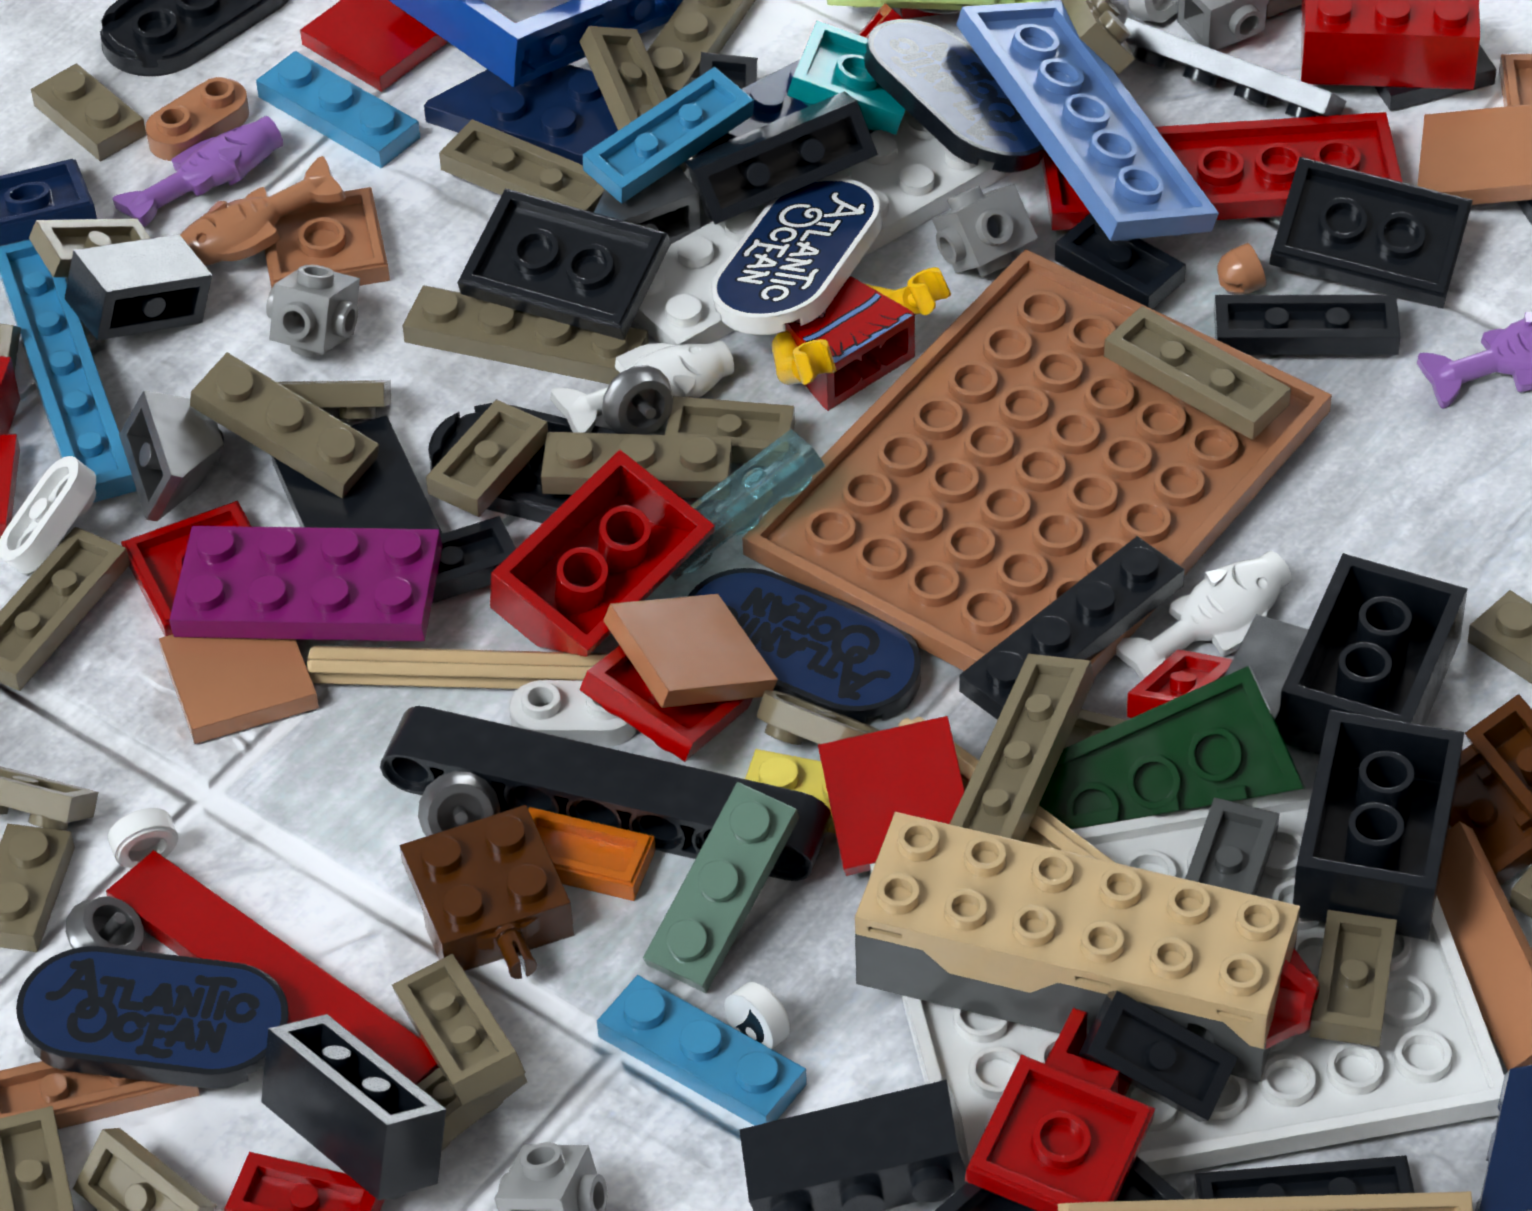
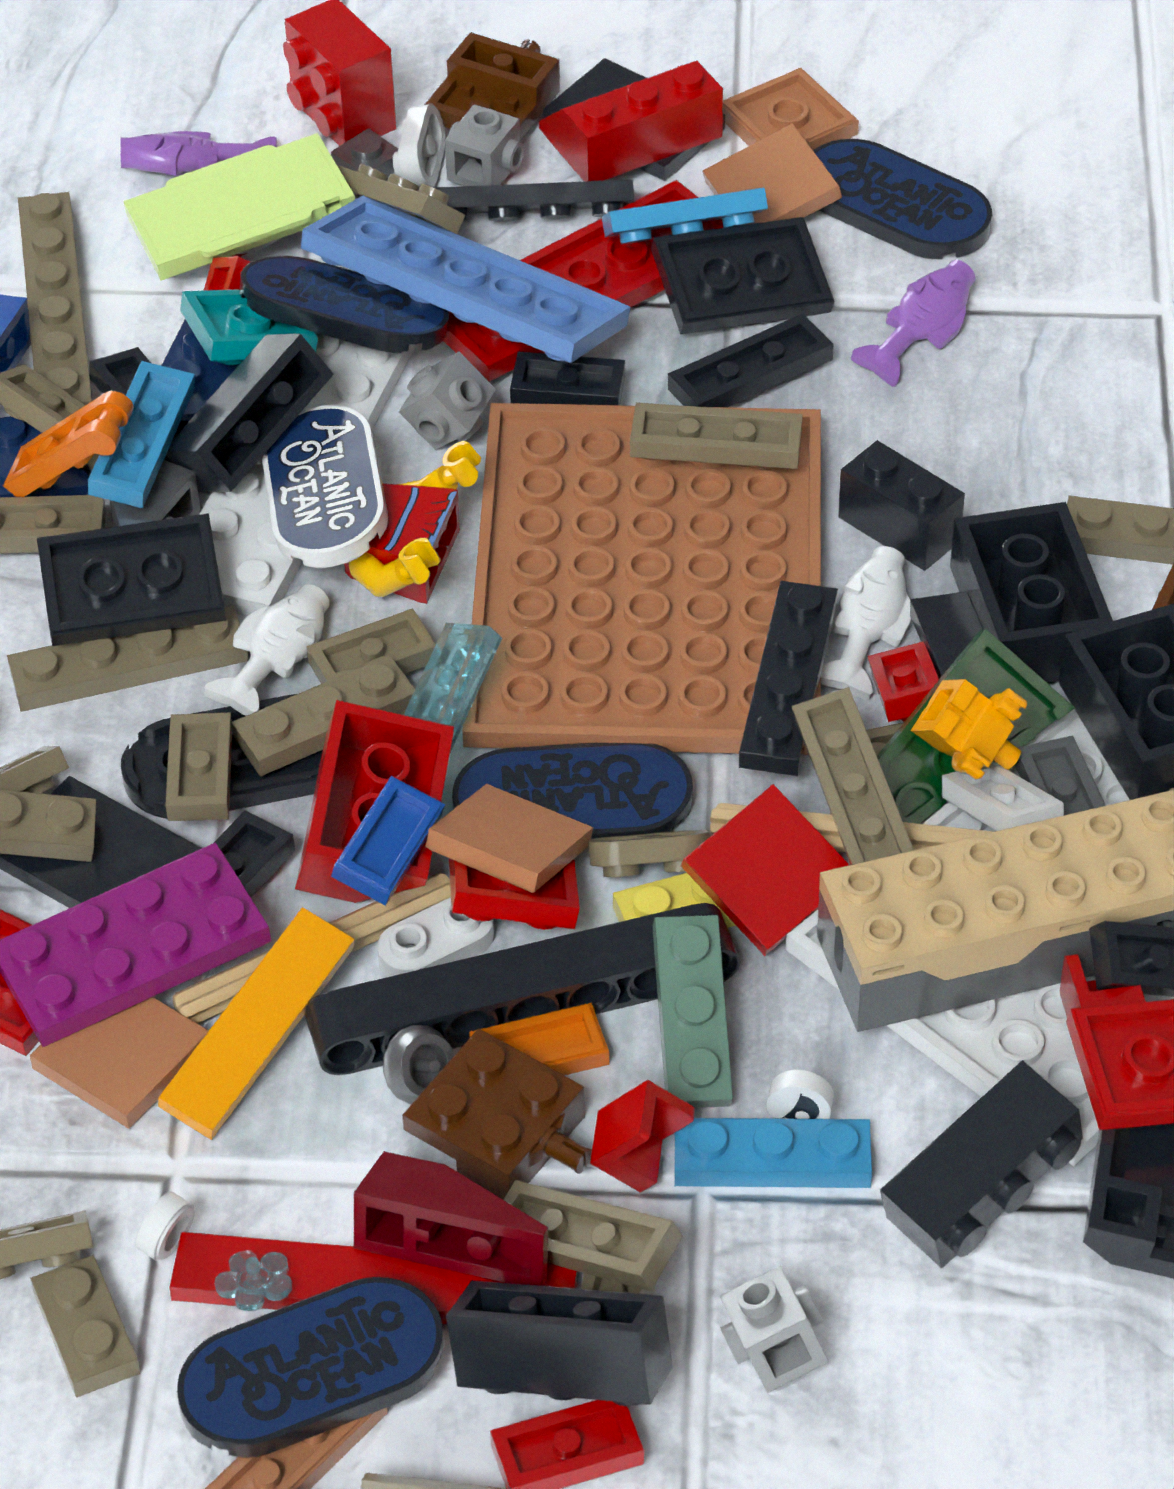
camera: 35 degrees left, 0 degrees up
(104, 924) = (197, 1316): flat silver hat -> none
(173, 920) = (253, 1279): none -> clear light blue plant
(351, 947) = (447, 1222): none -> dark red slope
(356, 704) = (255, 1023): none -> light orange tile
(569, 597) = (387, 840): none -> blue tile
(582, 970) = (632, 1133): none -> red panel
(598, 116) = (70, 443): none -> orange plate
(638, 401) = (289, 662): flat silver hat -> none
(1155, 833) = (1000, 798): none -> white plate
(1169, 756) = (971, 726): none -> light orange piece
(1241, 271) = (666, 346): nougat hinge -> none
(1325, 513) = (899, 504): none -> black brick
(1349, 148) = (684, 216): none -> dark azure plate

